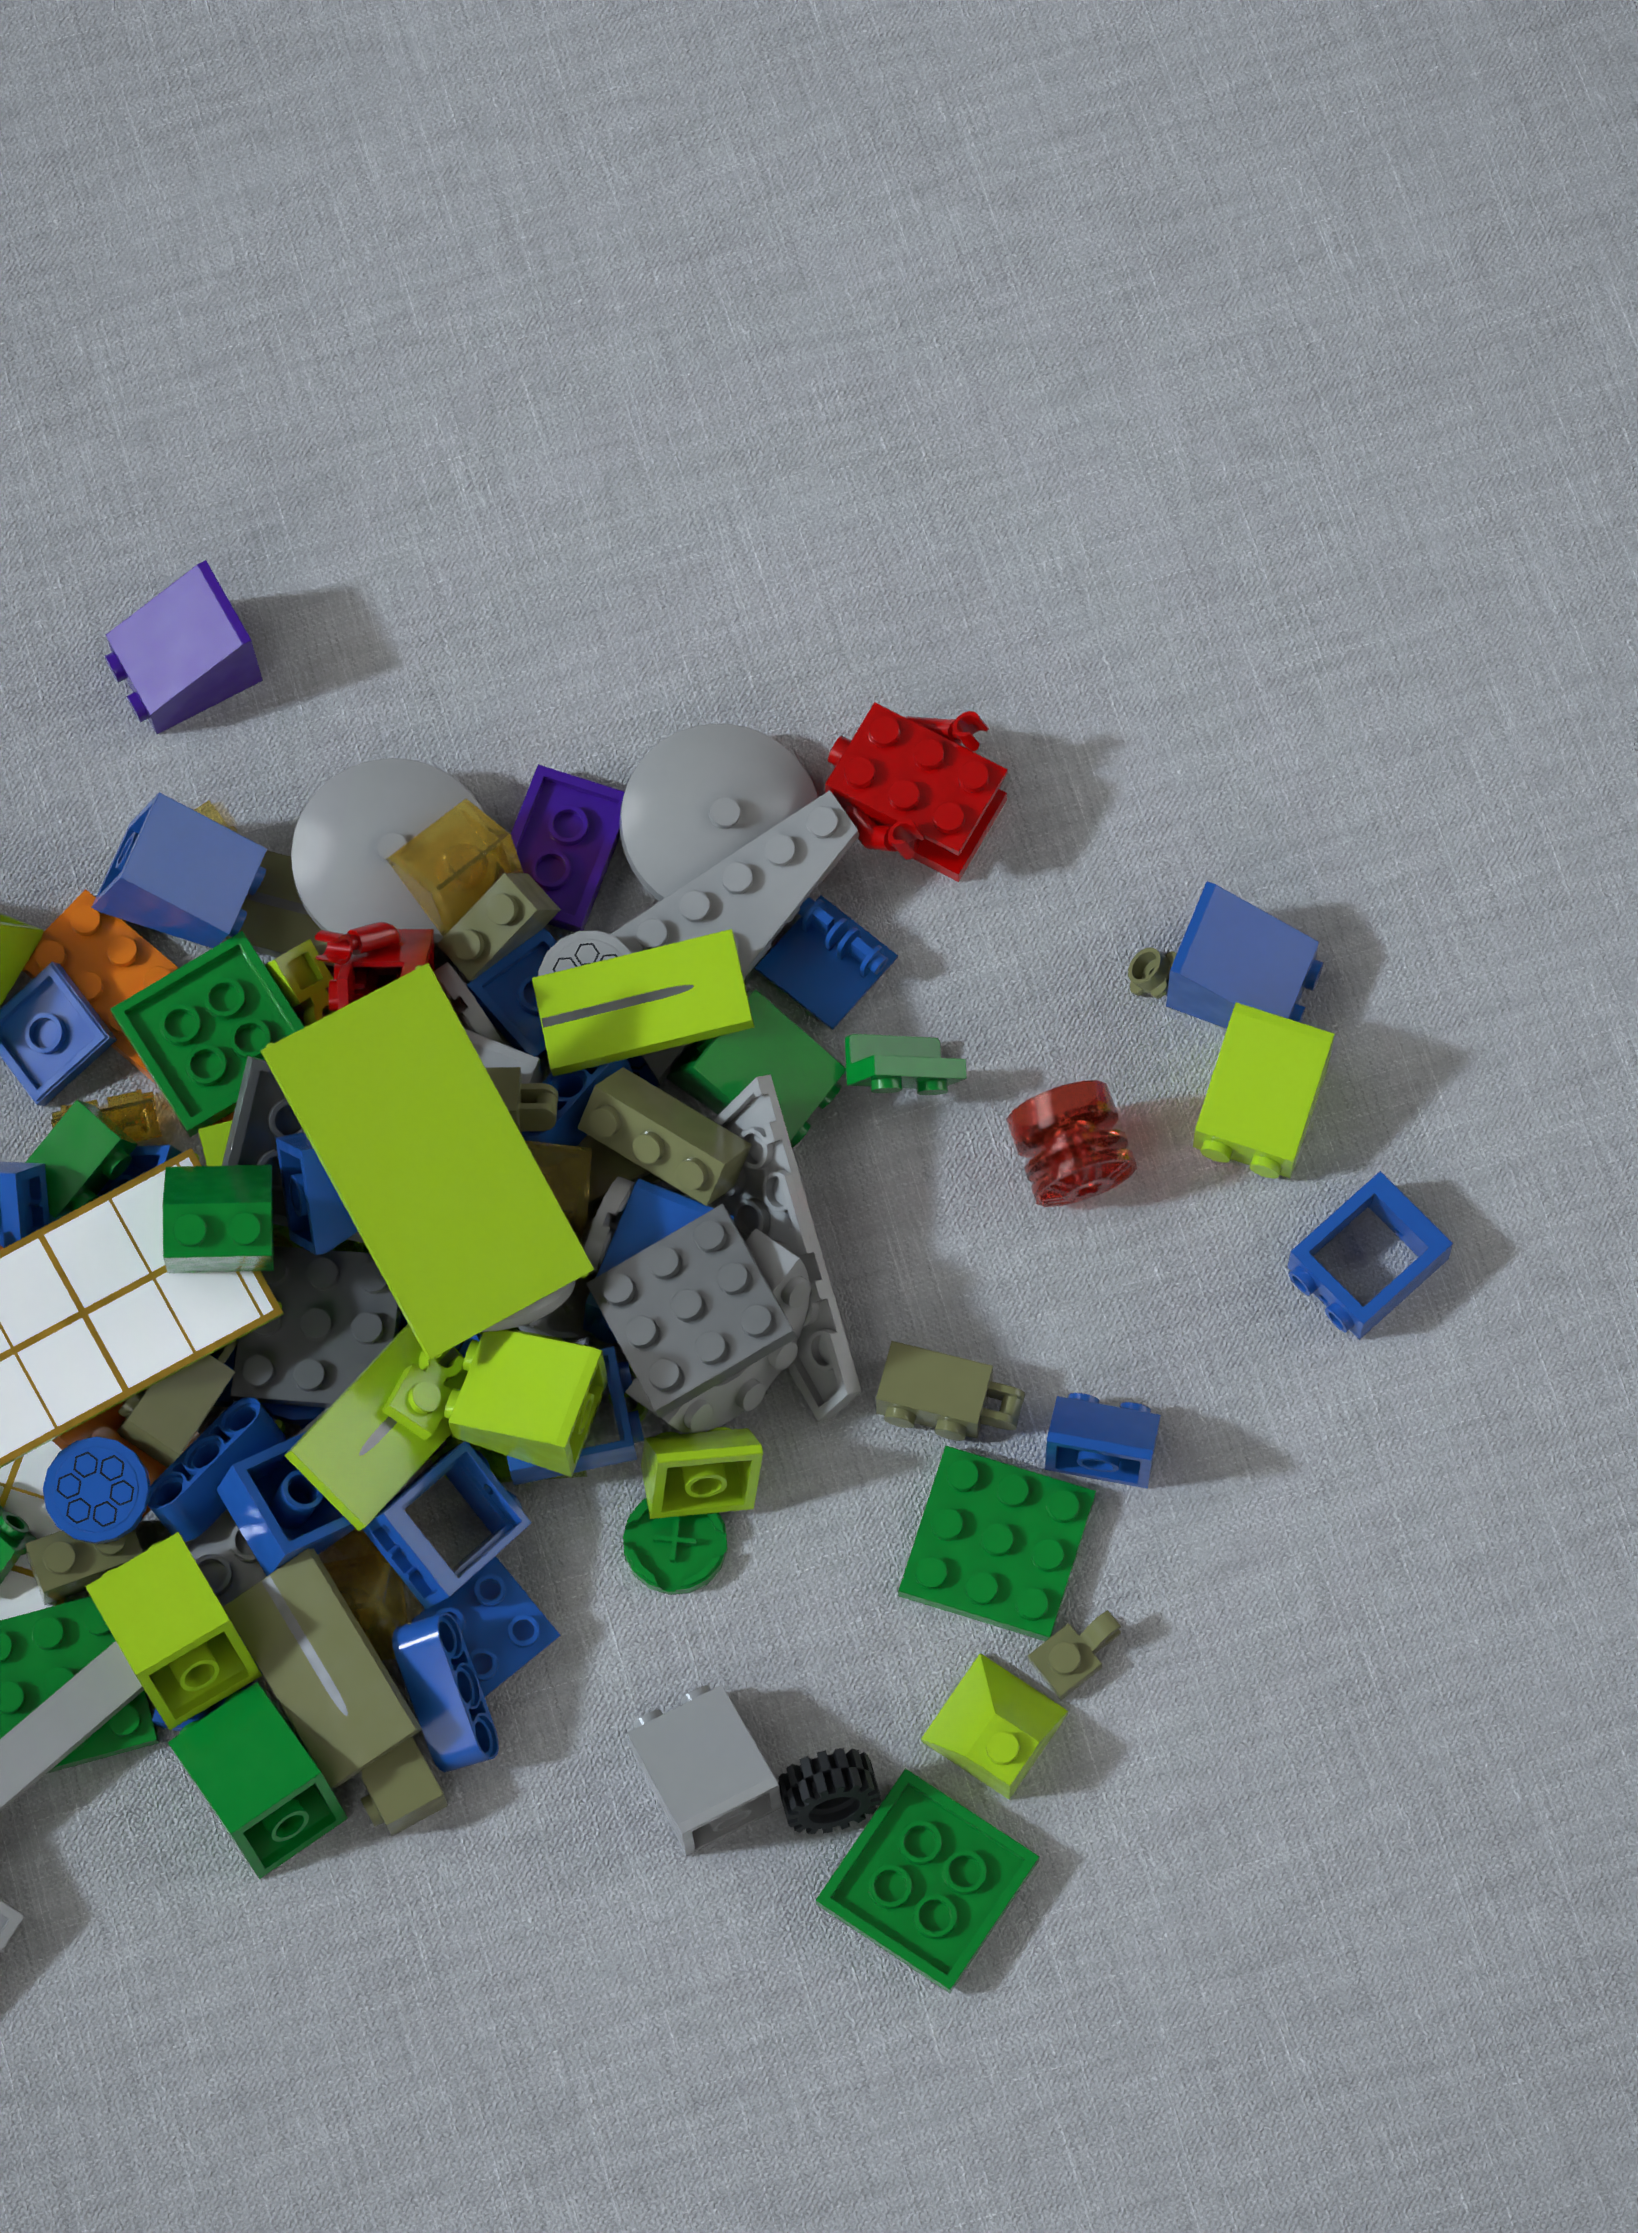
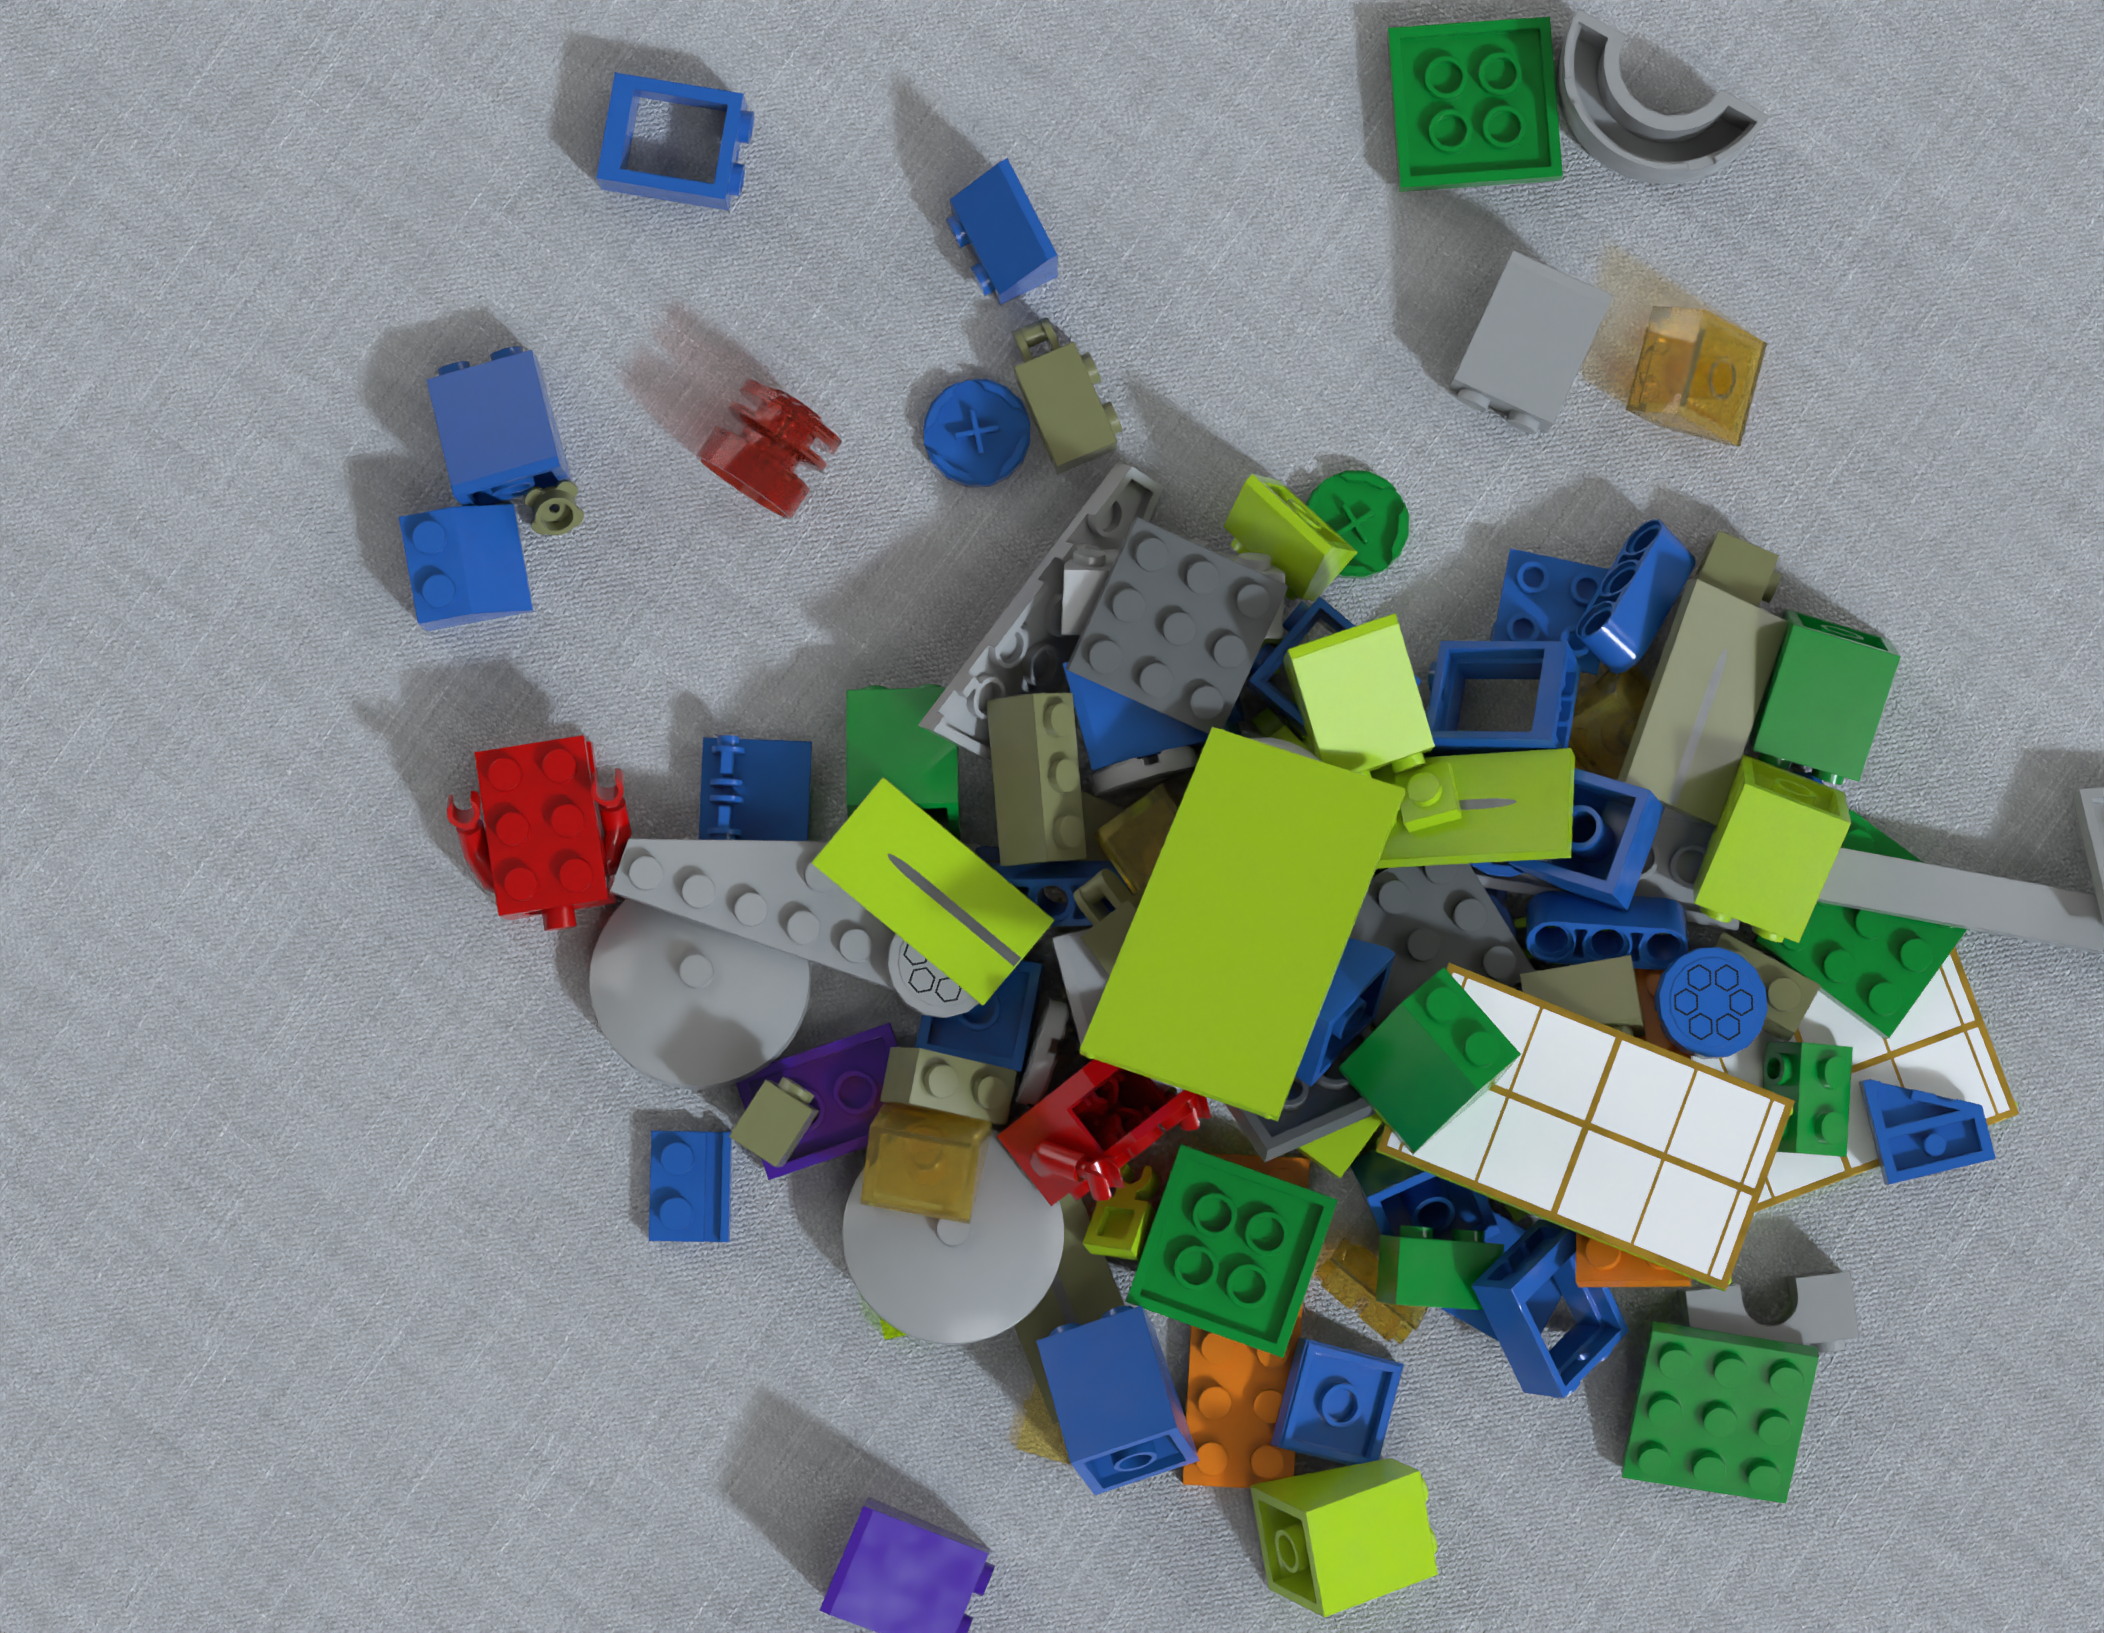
camera: 130 degrees left, 15 degrees up
(569, 780) = (775, 1121): none -> olive brick
(577, 1882) = (1696, 374): none -> clear yellow slope
(580, 716) = (690, 1186): none -> blue plate
(807, 1971) = (1634, 138): none -> light grey brick
(829, 1791) = (1471, 226): black tyre -> none
(900, 1062) = (806, 649): green bracket -> none
(970, 1315) = (977, 433): none -> blue tile
(994, 1726) = (1306, 147): lime slope -> none
(997, 1543) = (1152, 263): green plate -> none
(1070, 1658) = (1203, 134): olive plate -> none
(1157, 877) = (465, 565): none -> blue slope
(1263, 1091) = (600, 328): lime slope -> none

